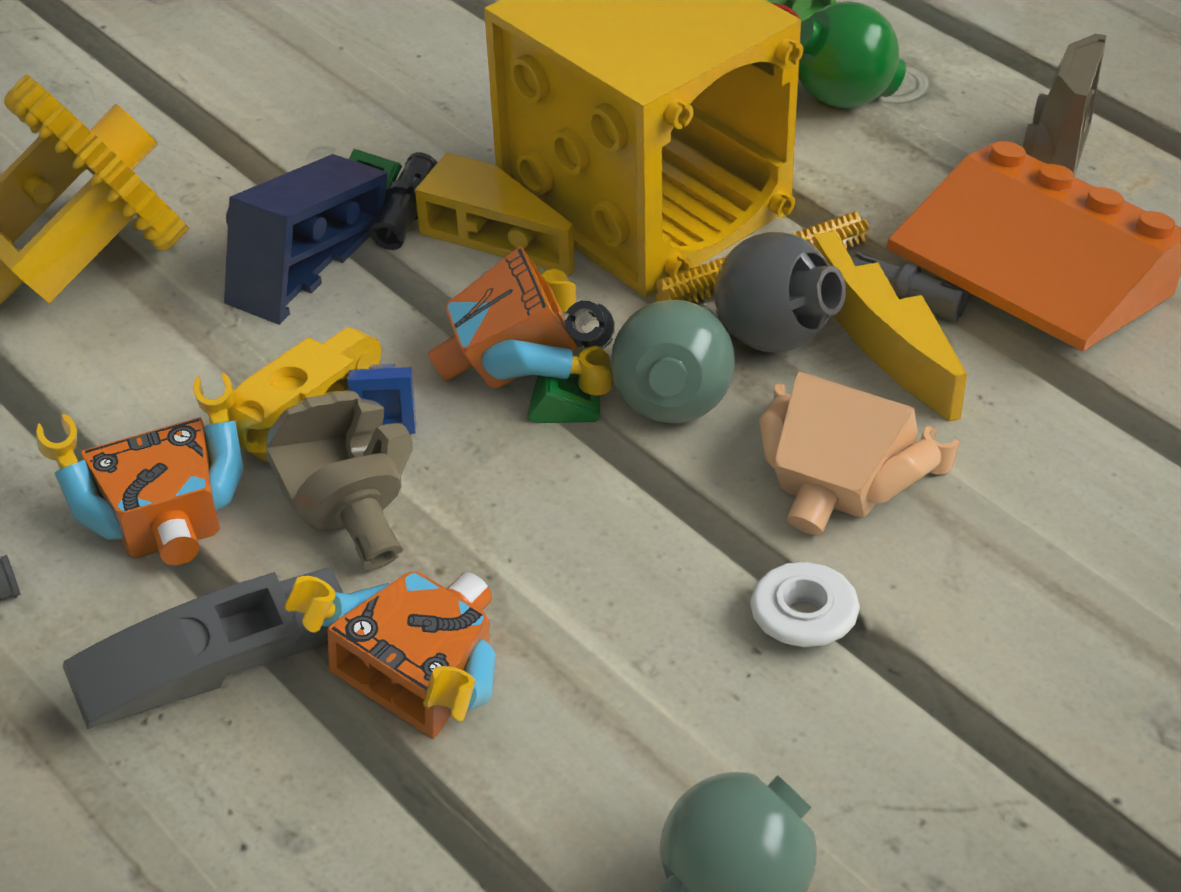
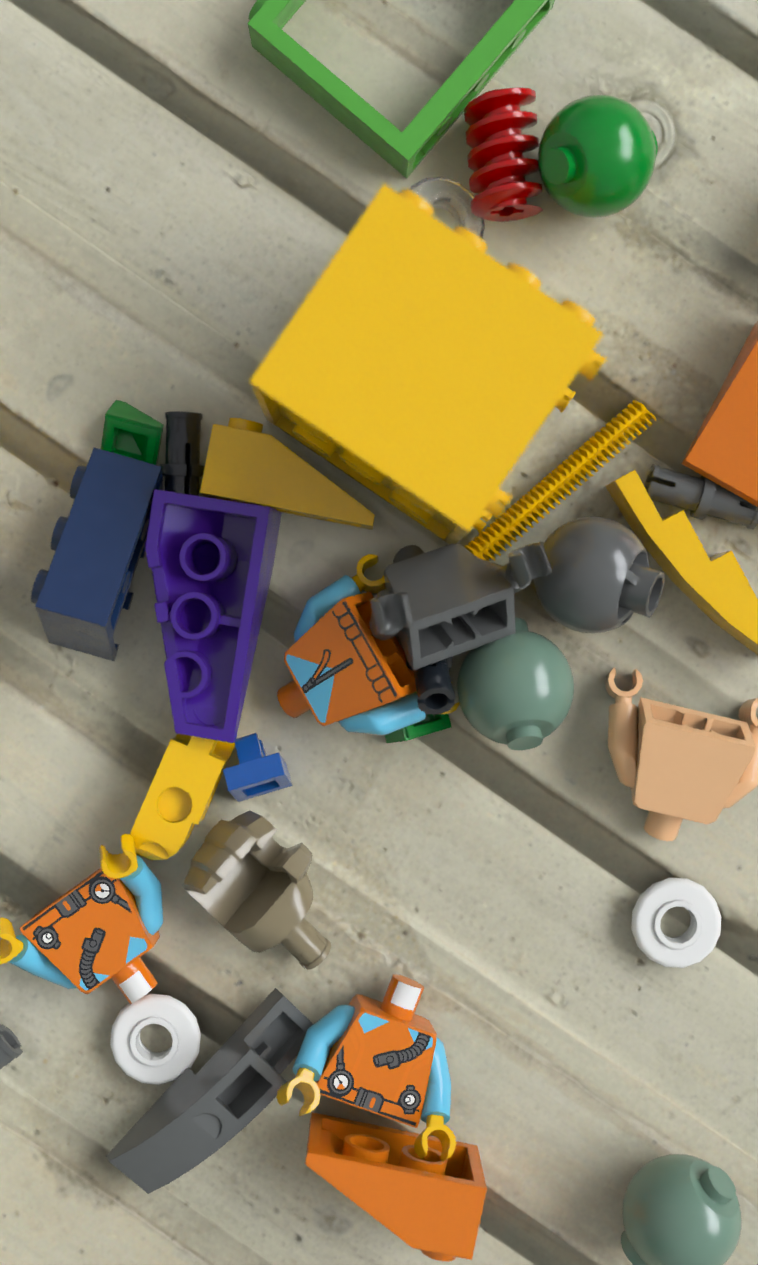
camera: 15 degrees left, 45 degrees up
(161, 585) = (142, 1063): none -> white piece
(398, 252) = (211, 592): none -> dark purple wedge
(404, 741) = (419, 1200): none -> orange slope
(620, 270) = (451, 599): none -> dark grey torso

